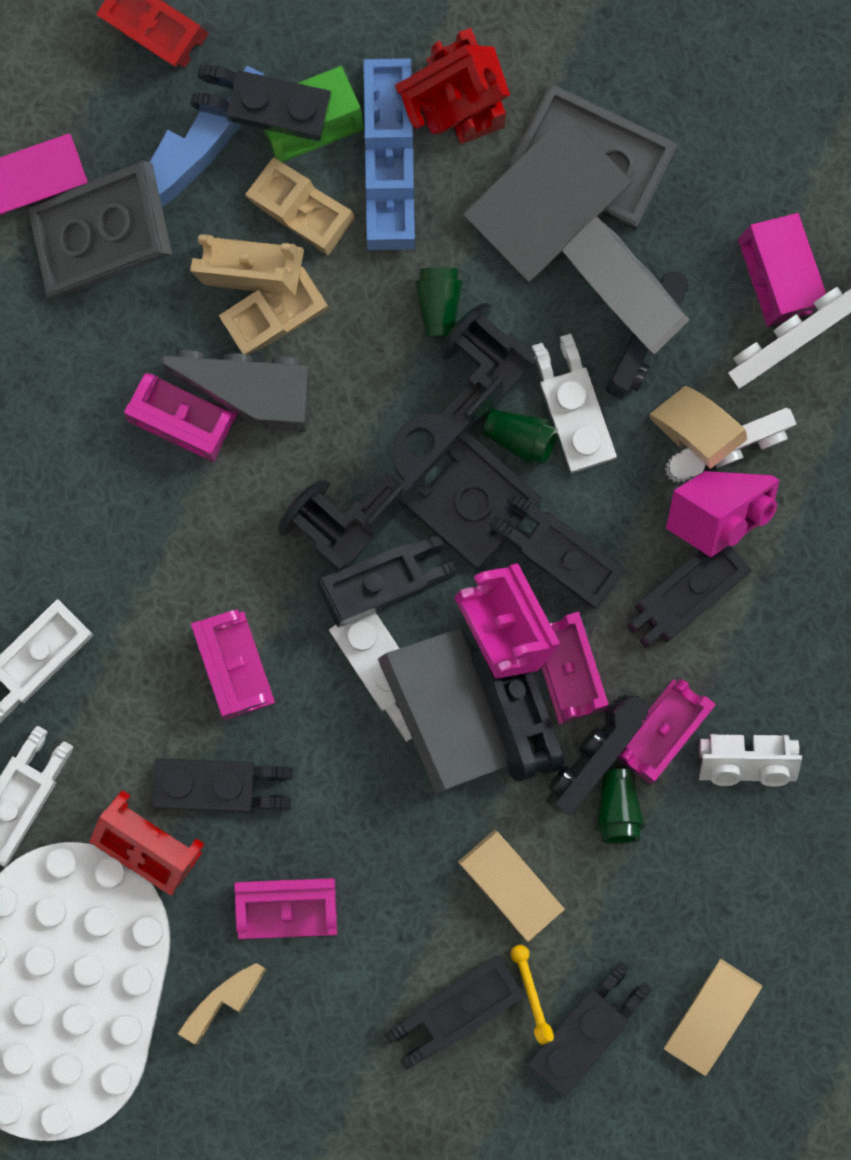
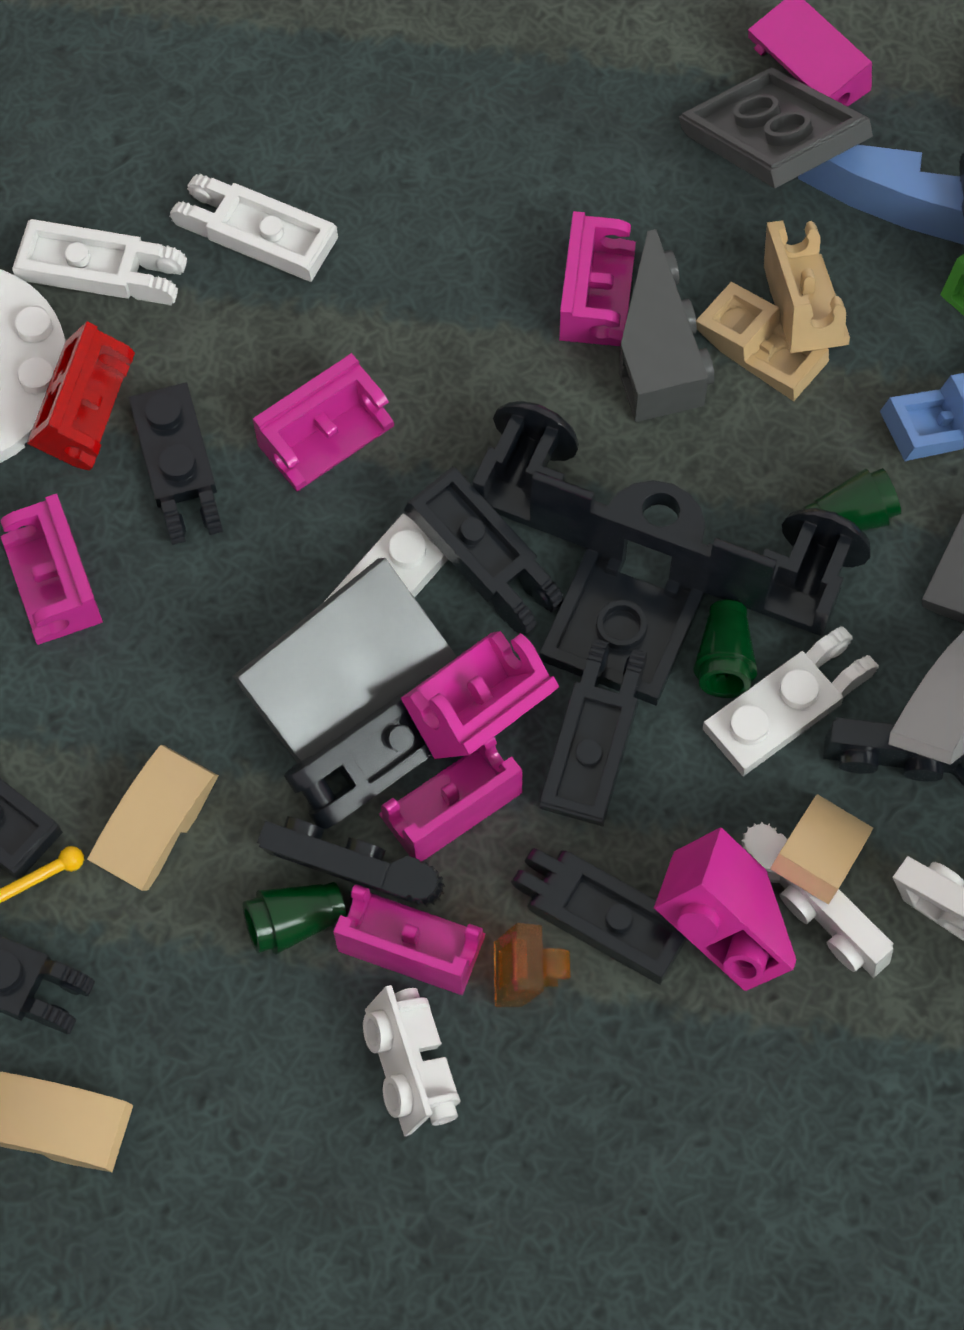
camera: 75 degrees right, 15 degrees down
(300, 206) = (900, 330): tan slope -> none
(712, 660) = (525, 967): none -> clear orange tile

